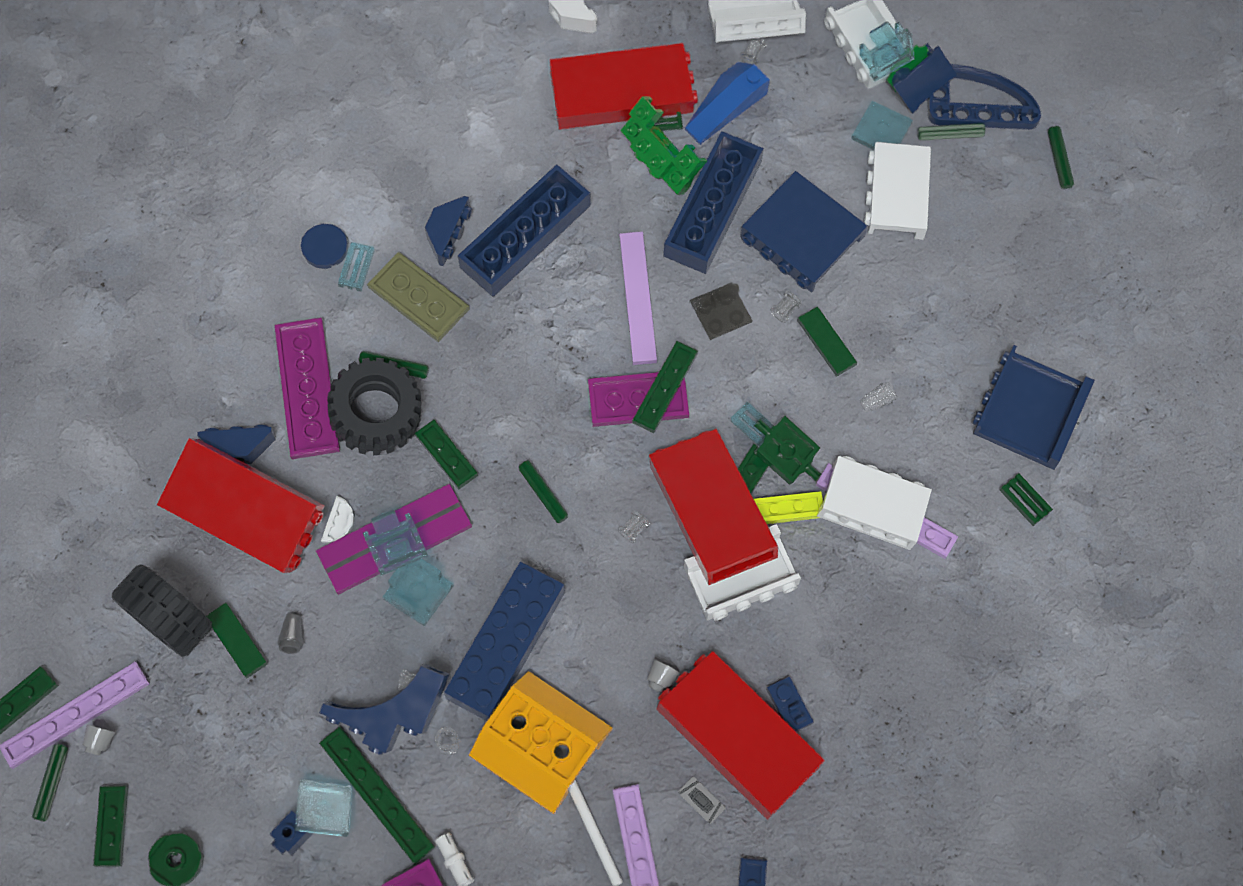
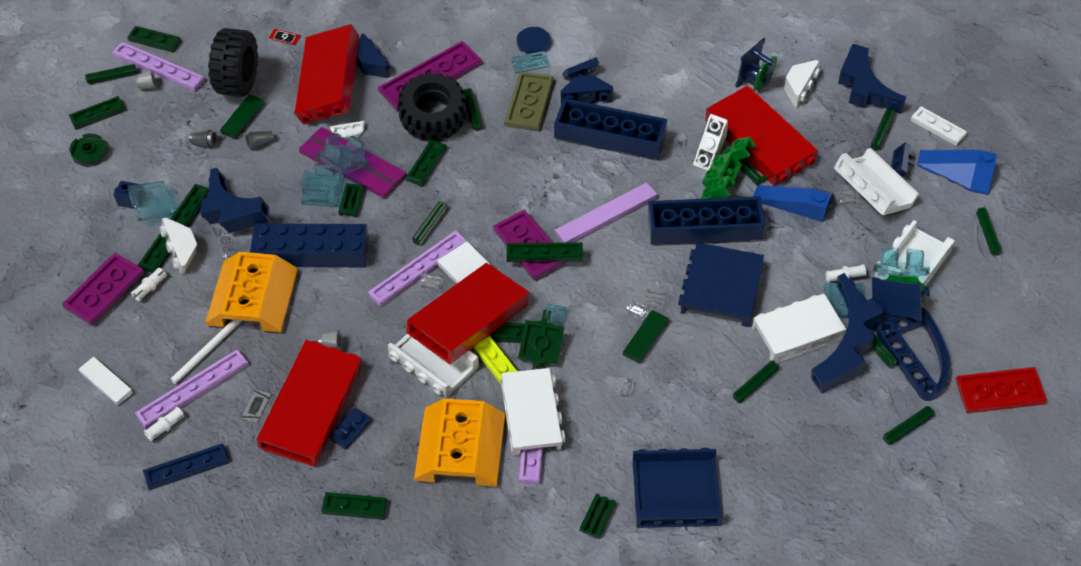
camera: 65 degrees right, 15 degrees down
(122, 533) = (283, 36): none -> sticker
(247, 703) = (204, 138): none -> flat silver cone
(407, 217) = (587, 66): none -> dark blue plate
(417, 797) = (179, 243): none -> white slope
(471, 577) = (349, 211): none -> dark green tile
(536, 41) = (751, 69): none -> piece
(602, 534) = (413, 271): none -> lavender tile
(609, 139) = (711, 142): none -> white slope
(628, 481) = (461, 262): none -> white tile
(721, 310) = (627, 263): clear smoke hinge -> none
(792, 331) = (638, 310): none -> clear bush
(851, 109) = (851, 272): none -> white pin
(866, 609) = (476, 439): none -> light orange slope
(894, 744) = (354, 505): none -> dark green tile
(920, 125) = (847, 360): none -> dark blue arch
(939, 266) = (755, 381): none -> dark green axle
(1059, 55) = (1001, 390): none -> red tile

